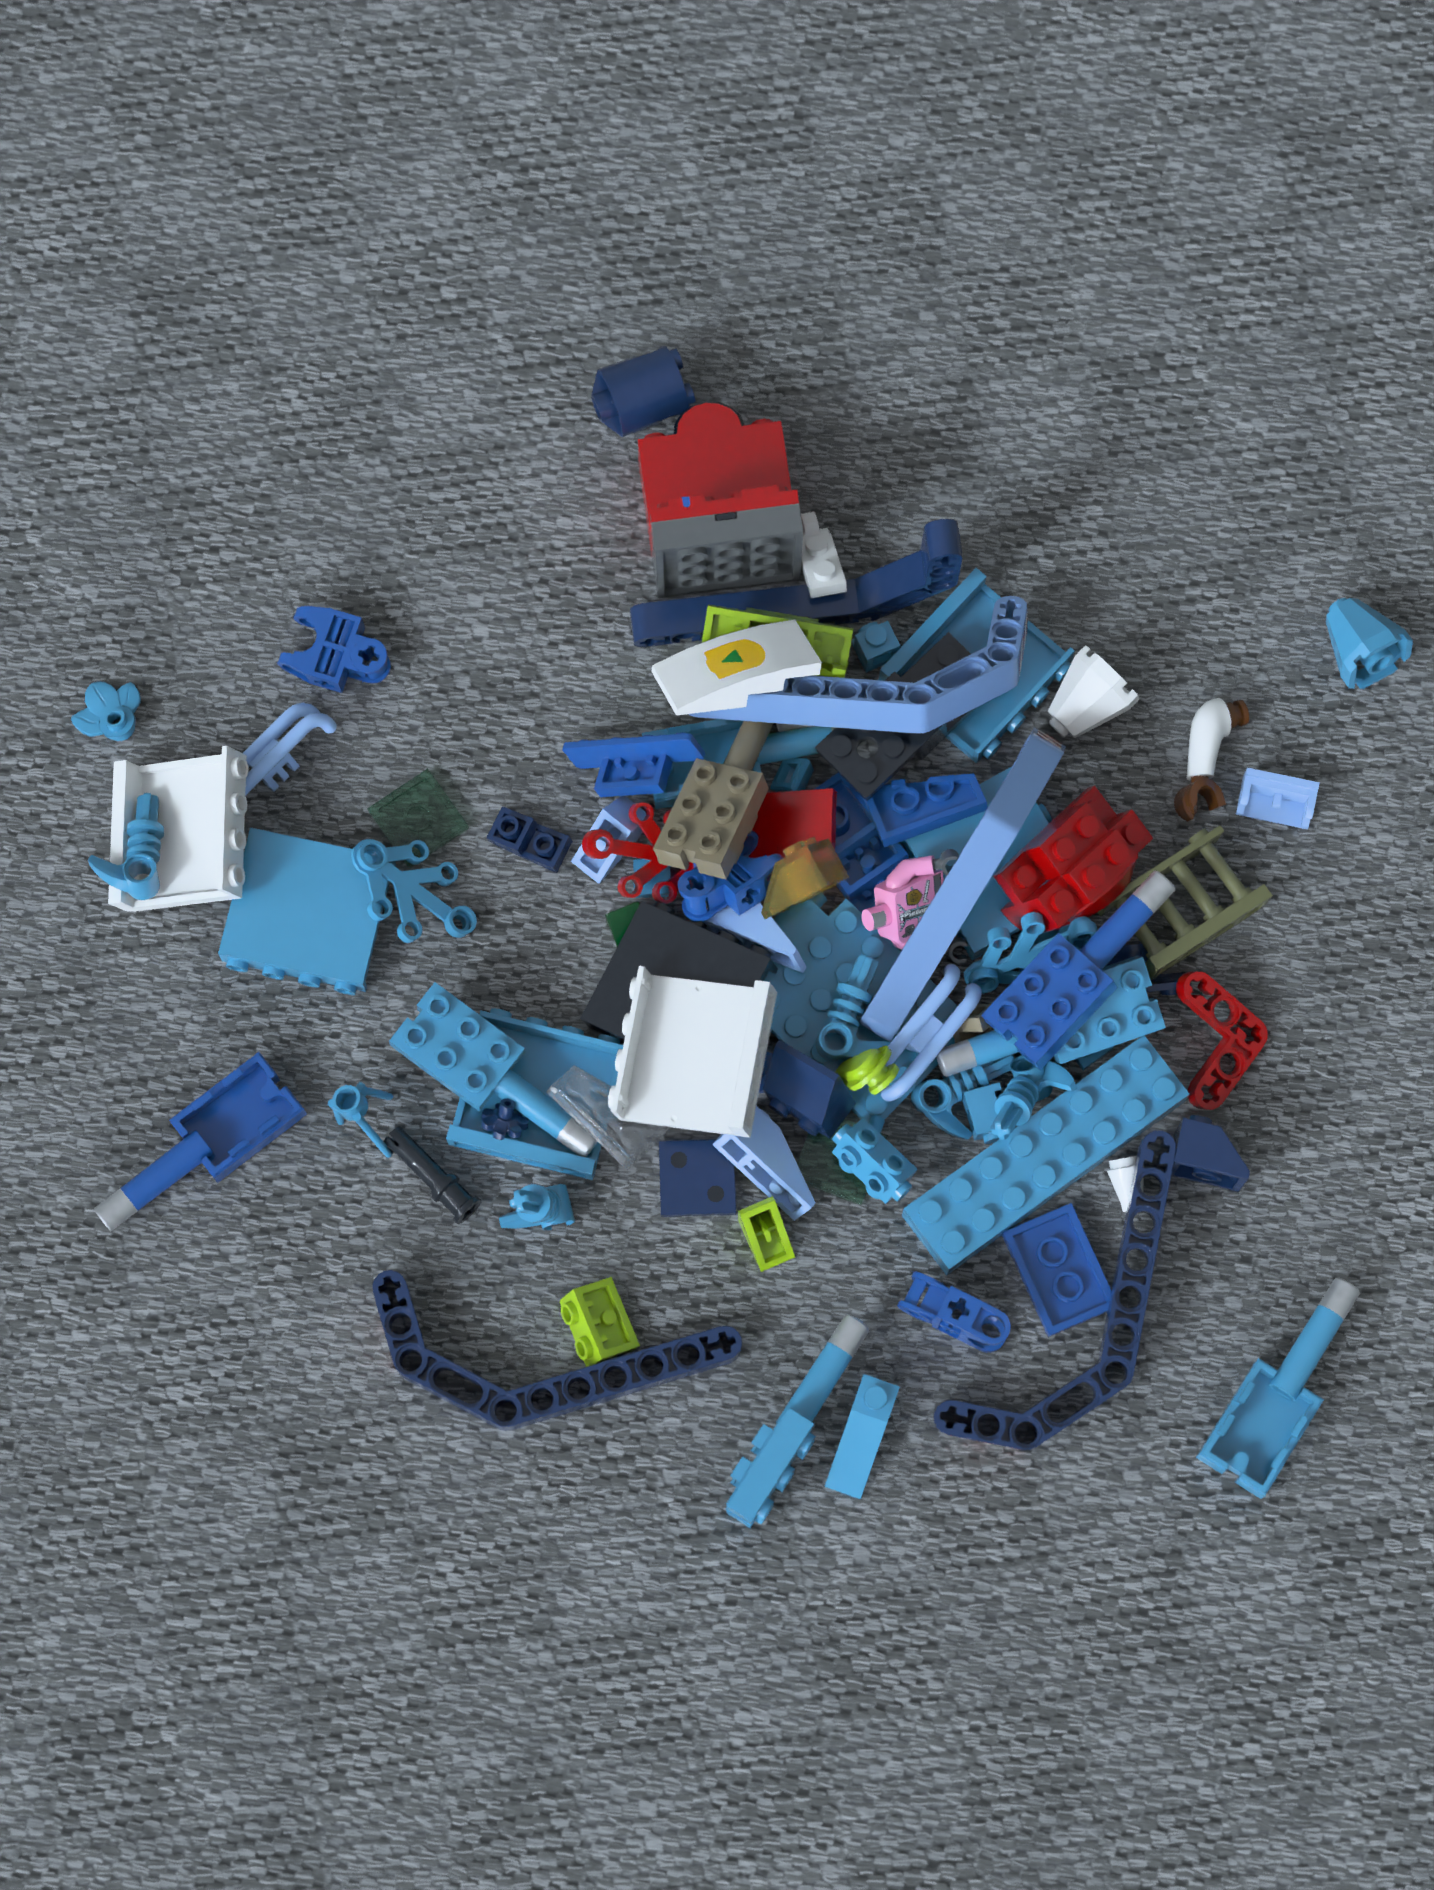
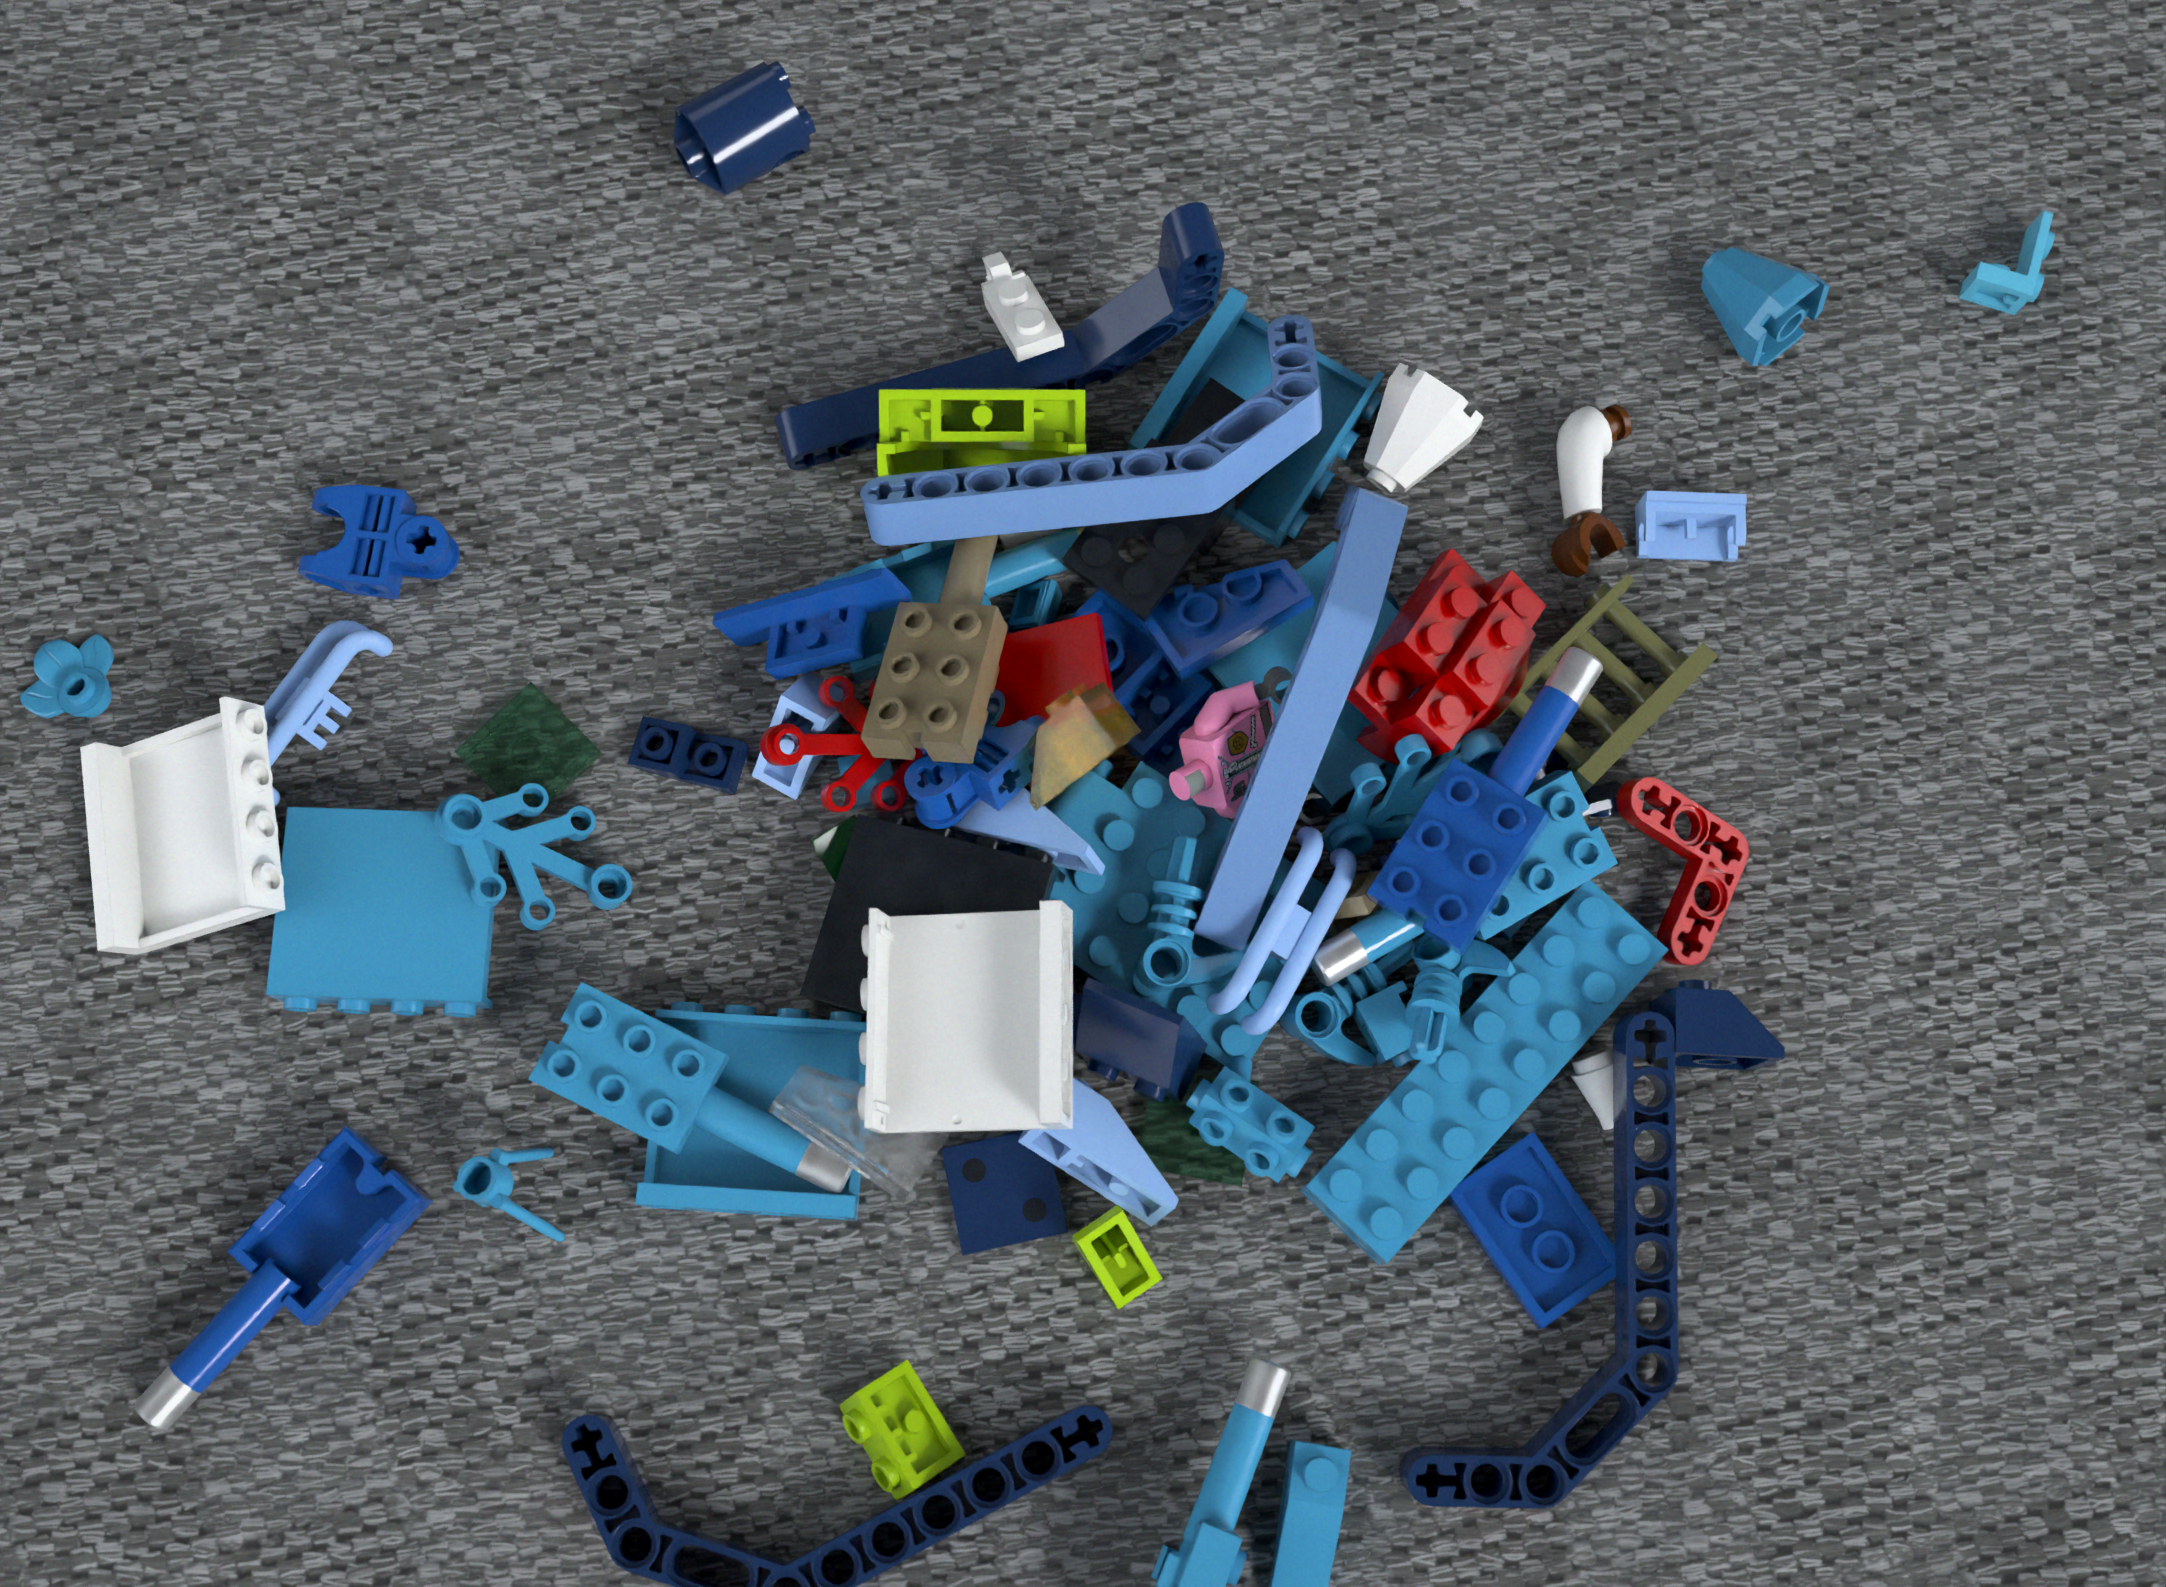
camera: 15 degrees left, 0 degrees up
(140, 857) = (134, 872): dark azure piece -> none
(443, 1186) = (644, 1271): black pin -> none
(504, 1120) = (715, 1162): dark blue plant -> none
(539, 1206) = (787, 1279): dark azure piece -> none
(719, 503) = (873, 257): piece -> none
(736, 665) = (929, 462): white slope -> none
(868, 1069) = (1222, 1000): lime piece -> none
(875, 645) = (1115, 412): dark azure brick -> none
(940, 1304) = (1376, 1318): blue piece -> none
(1272, 1405) = (1869, 1376): dark azure piece -> none

